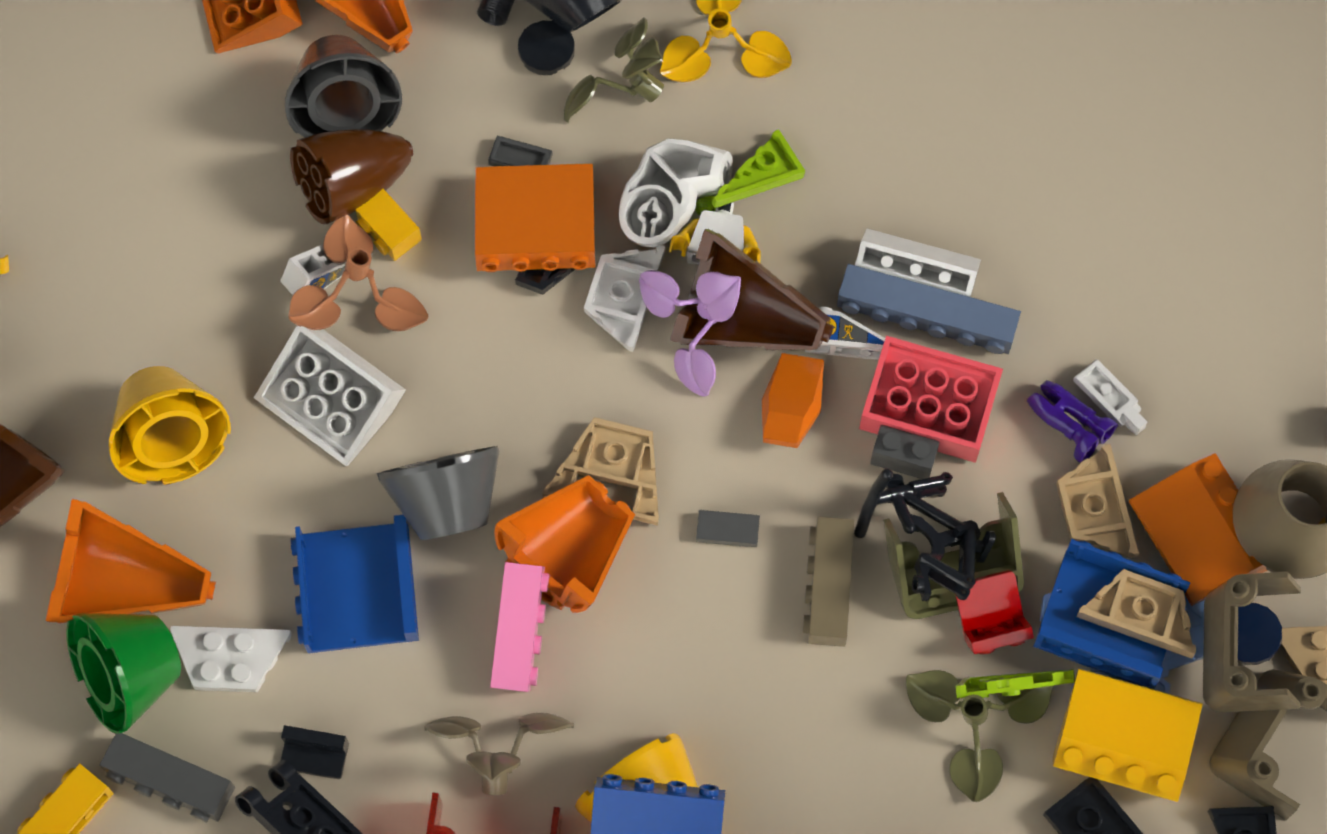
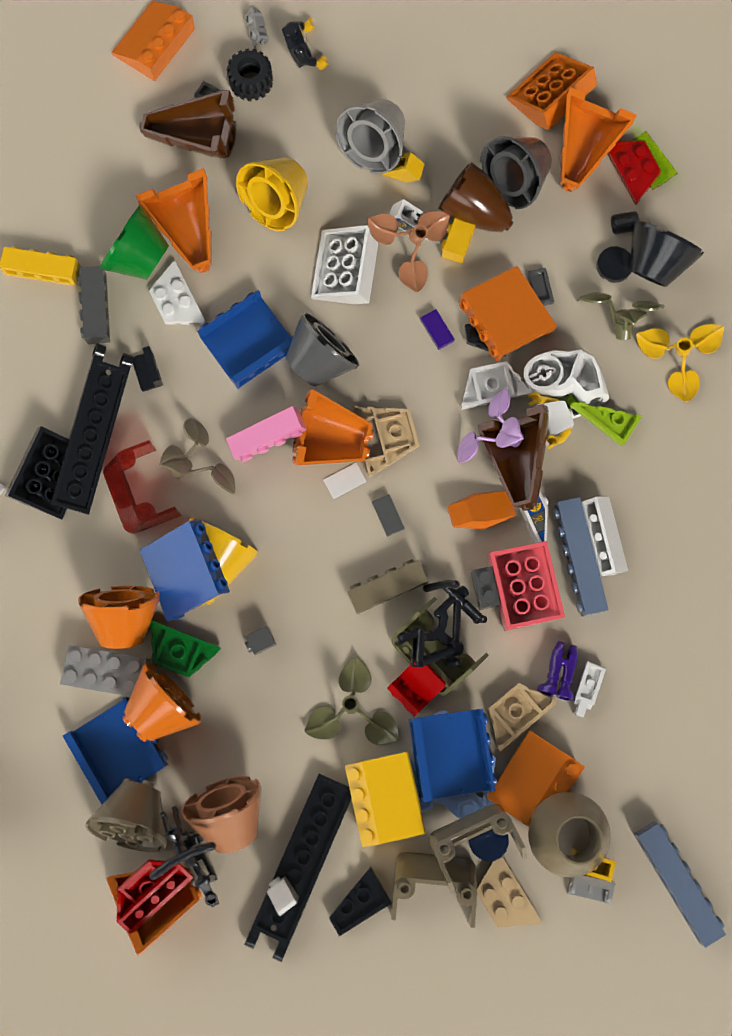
camera: 60 degrees right, 10 degrees up
(169, 249) = (372, 135): none -> light grey cone
(233, 239) = (407, 170): none -> yellow slope
(497, 321) = (437, 329): none -> dark purple tile
(643, 562) = (344, 480): none -> white sticker
(812, 796) = (260, 641): none -> dark grey brick
(1012, 683) = (372, 704): lime wing -> none
(1143, 611) = (463, 772): tan wing -> none

